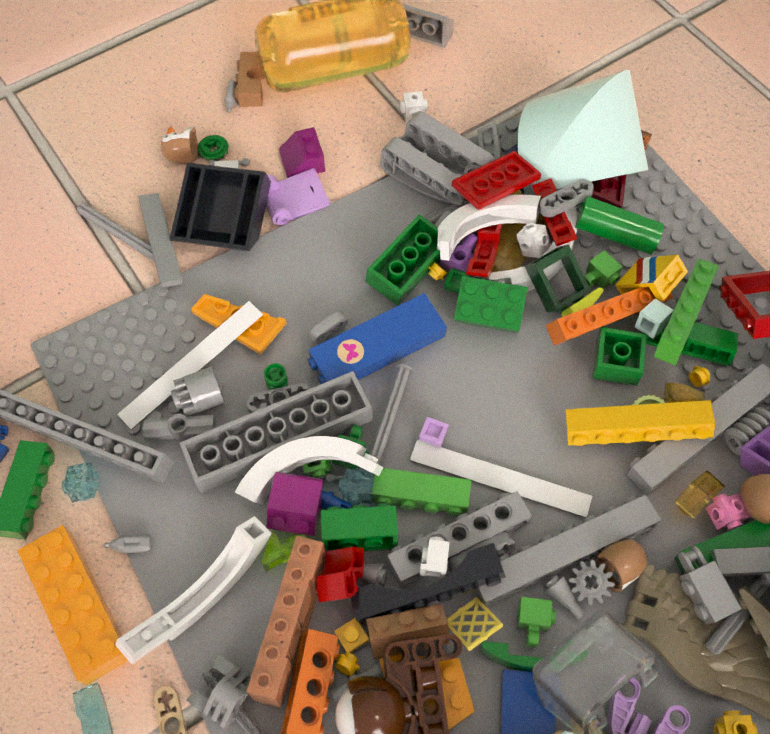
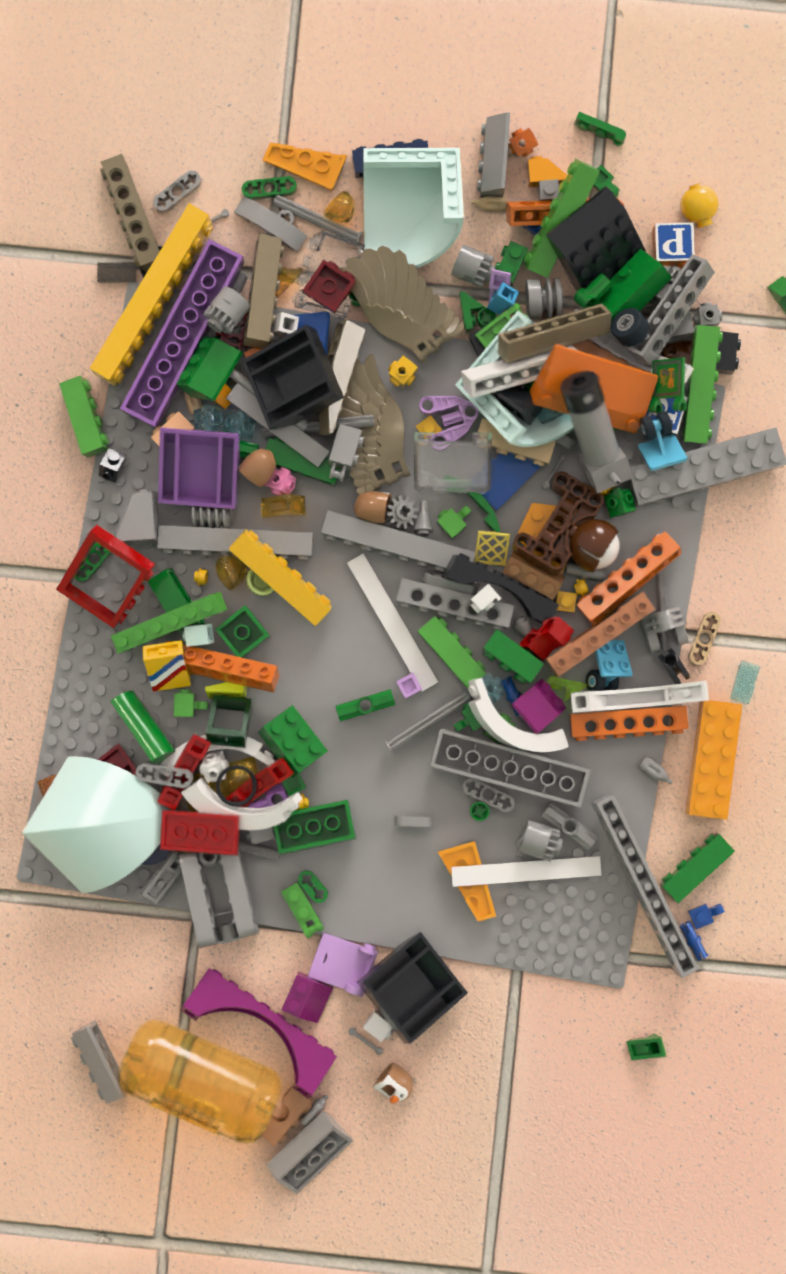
camera: 140 degrees left, 25 degrees up
(81, 482) = (658, 839): clear light blue brick -> none
(115, 229) = (494, 1034): light grey axle -> none
(155, 584) = (678, 715): none -> orange brick
(159, 237) = (472, 1003): light grey tile -> none
(182, 658) = (673, 666): none -> black head
(209, 143) = (365, 1074): green gear -> none
(211, 70) = (309, 1152): none -> light grey slope
(251, 604) = (612, 664): none -> medium azure plate
(361, 204) = (302, 909): none -> bright green plate
(368, 225) = (316, 883): none -> green beam
(372, 109) = (308, 1057): none -> magenta arch
(378, 341) = (391, 781): blue brick -> none
(413, 103) = (185, 964): white brick -> none
(451, 394) = (352, 708): none -> green piece
(503, 217) = (232, 768): none -> black tyre
(650, 699) = (428, 425): none -> yellow plate

